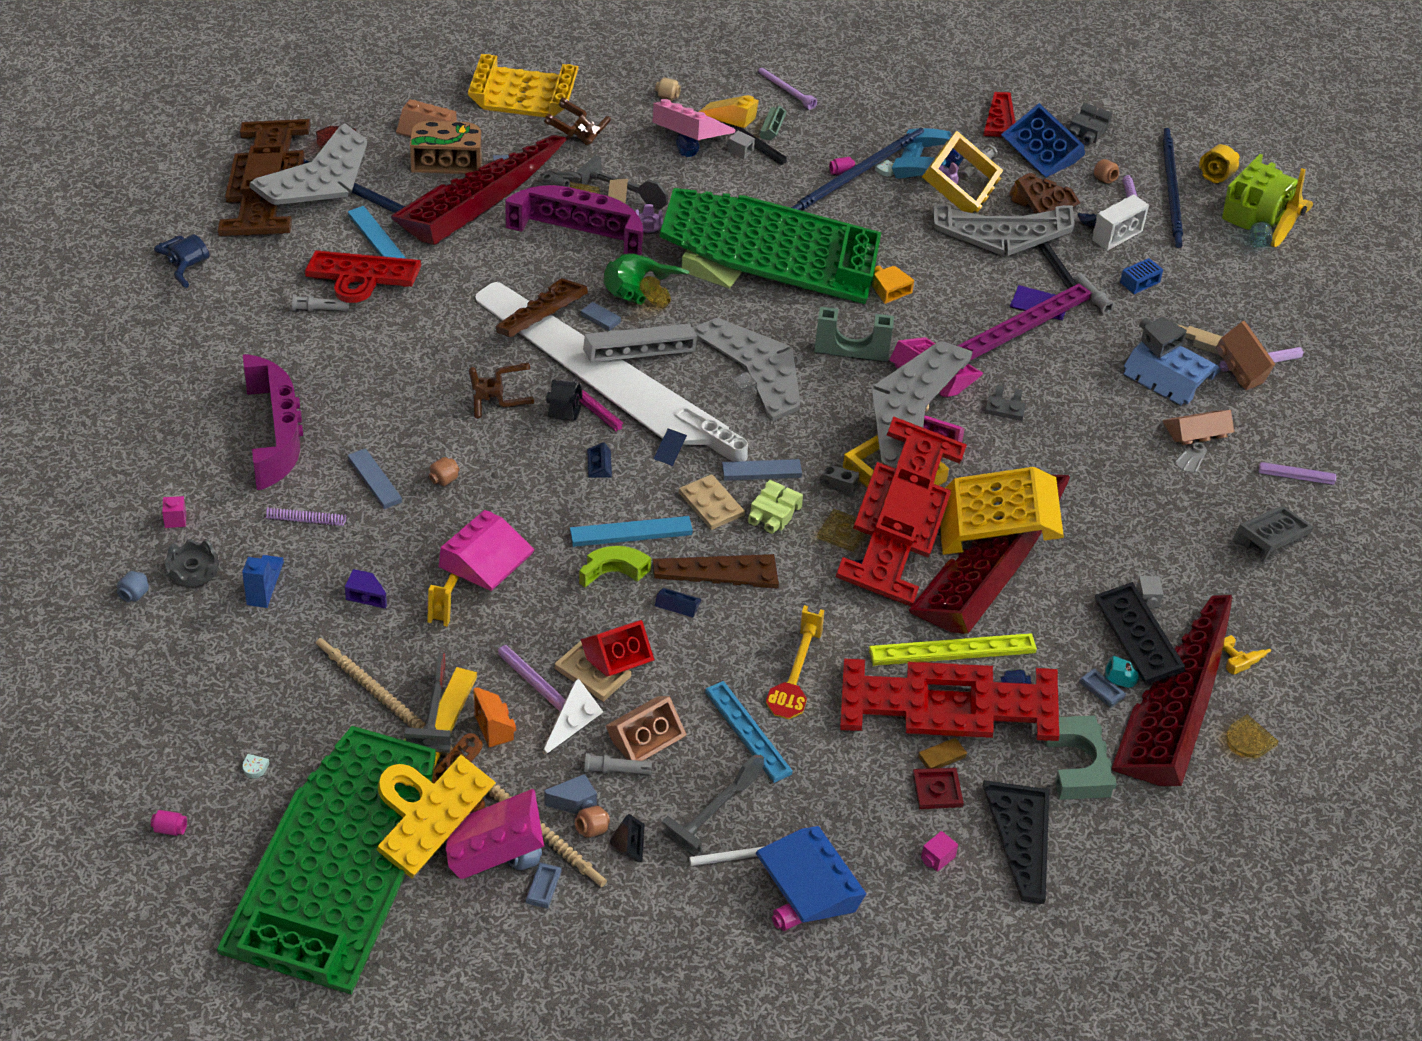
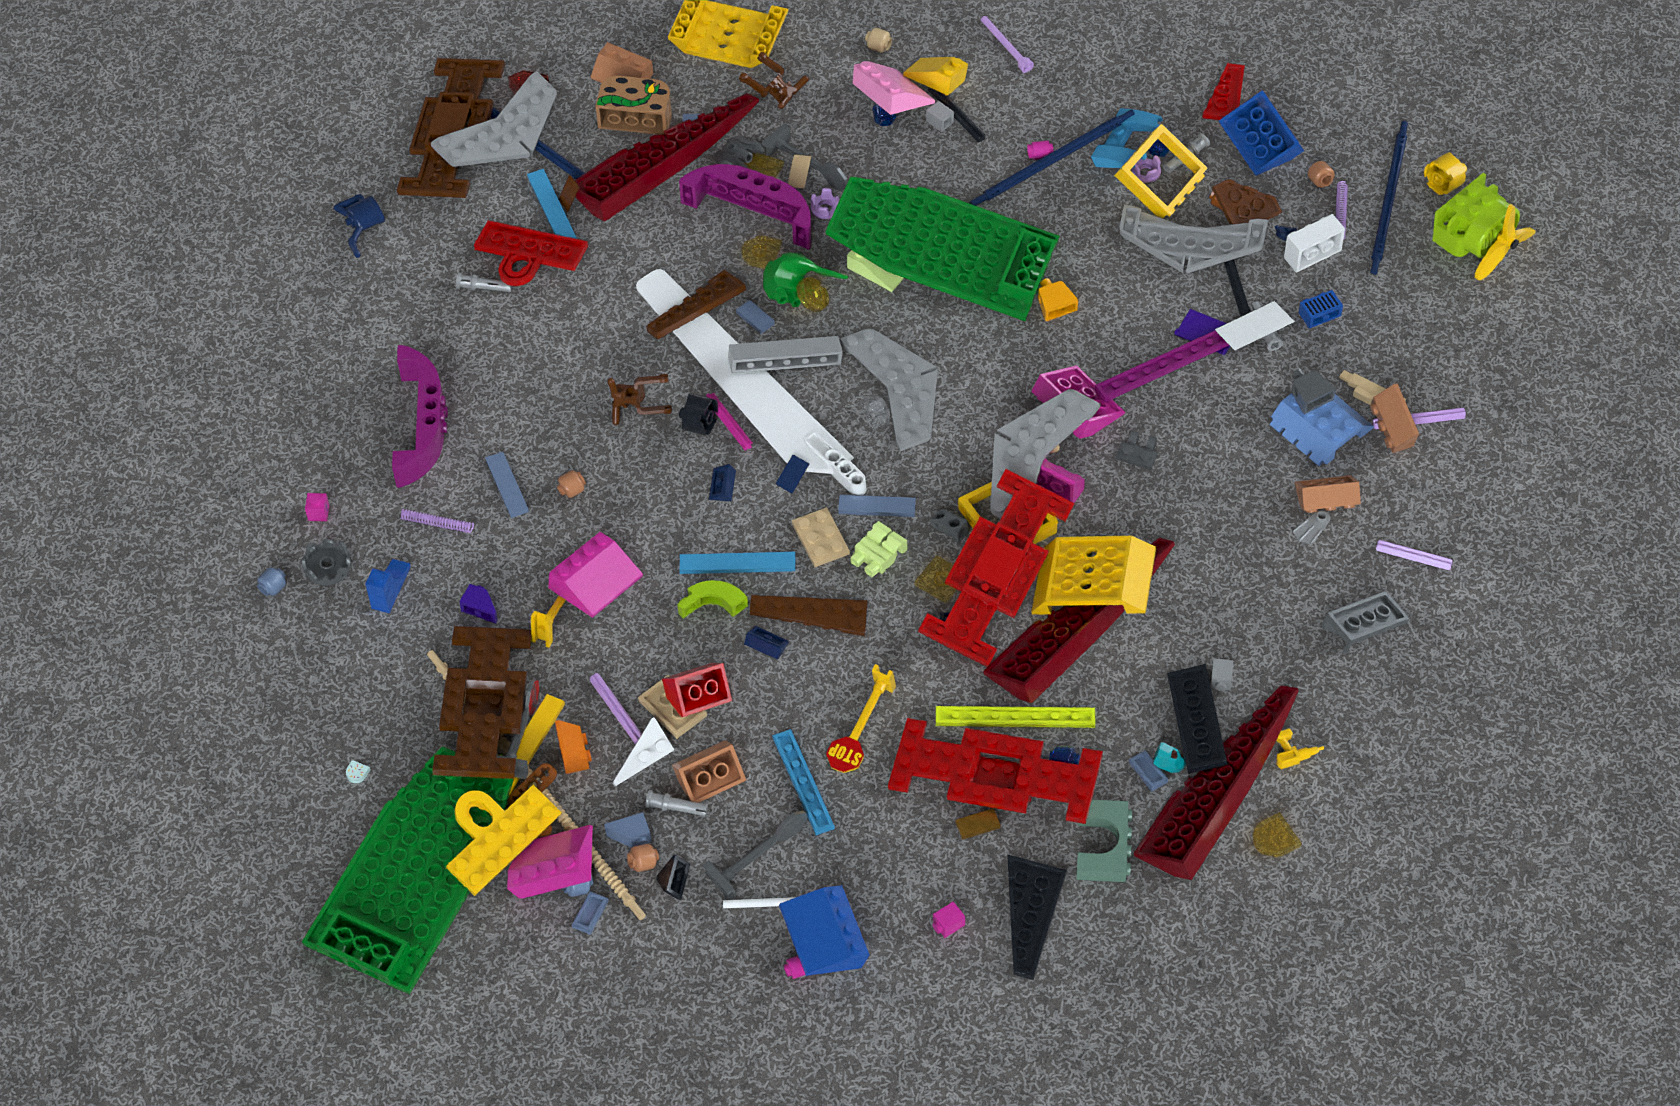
camera: 15 degrees right, 10 degrees up
(169, 823) = (276, 820): dark pink brick -> none
(381, 681) = (491, 702): none -> reddish brown piece
(394, 221) = (568, 193): none -> reddish brown sticker
(593, 262) = (760, 251): none -> clear yellow tile
(772, 123) = (980, 89): sand green piece -> none
(873, 347) = (976, 365): sand green arch -> none
(885, 168) = (1085, 153): light aqua tile -> none
(937, 788) = (964, 857): dark red tile -> none
(1086, 291) = (1254, 325): none -> white sticker
(1090, 124) = (1320, 112): dark grey hips -> none
(1261, 234) = (1464, 265): clear light blue head -> none

